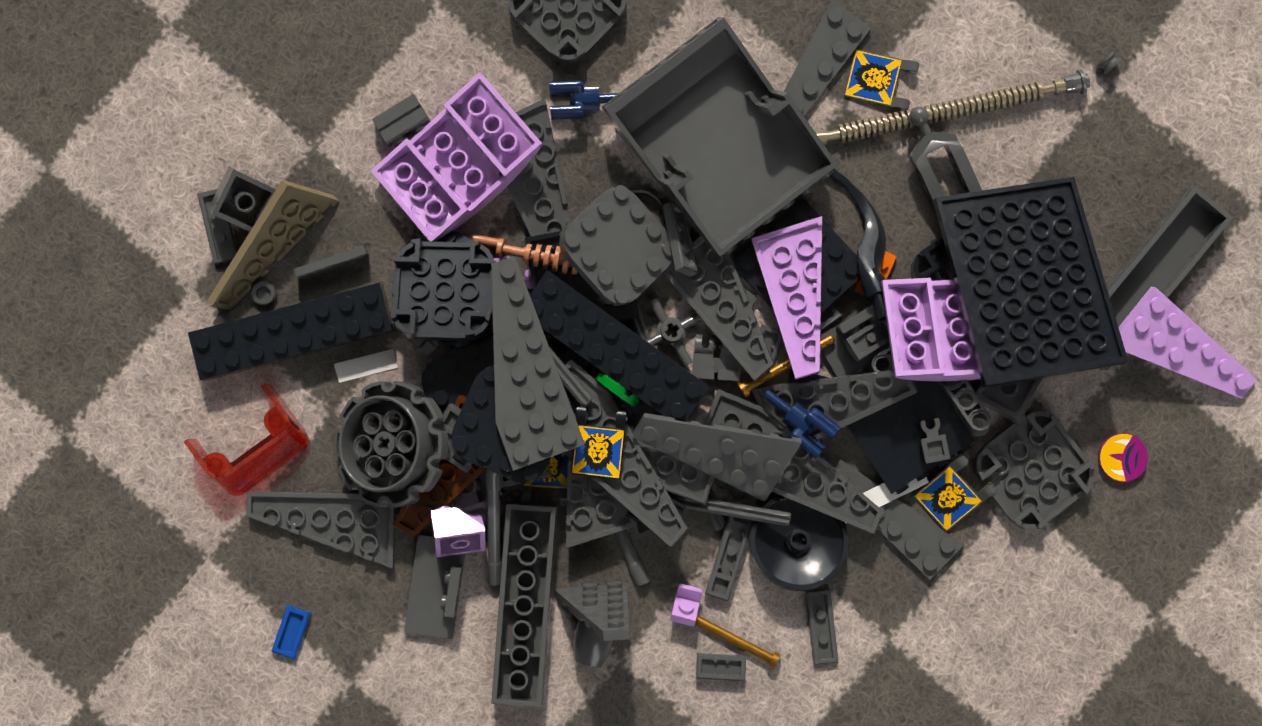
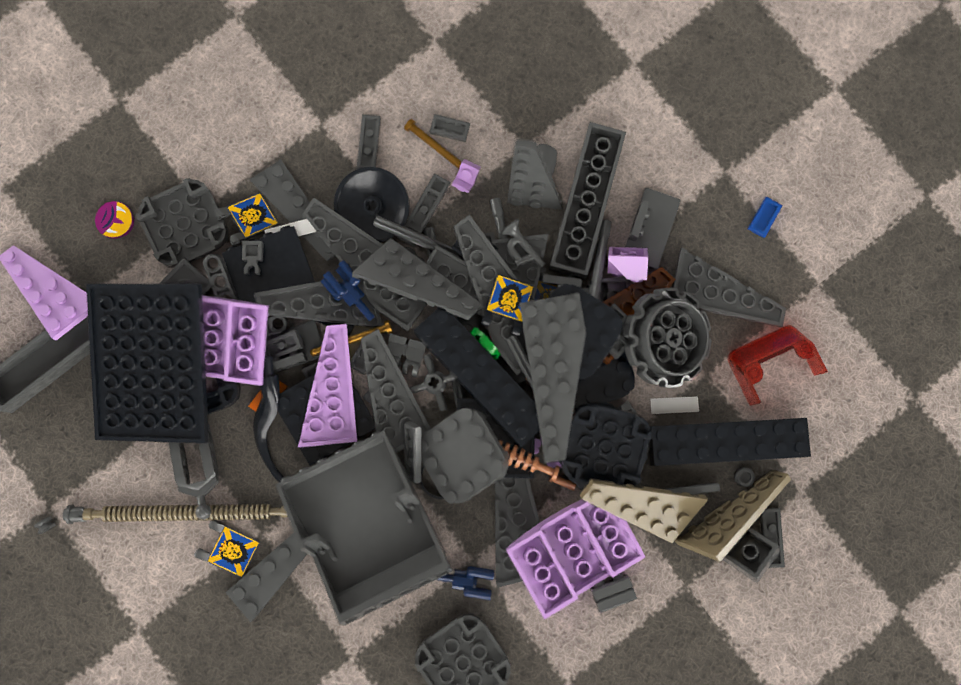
camera: 170 degrees left, 5 degrees down
(376, 228) = (646, 507): none -> wing
(536, 489) = (559, 281): none -> dark grey plate
(609, 540) = (513, 230): none -> dark grey piece

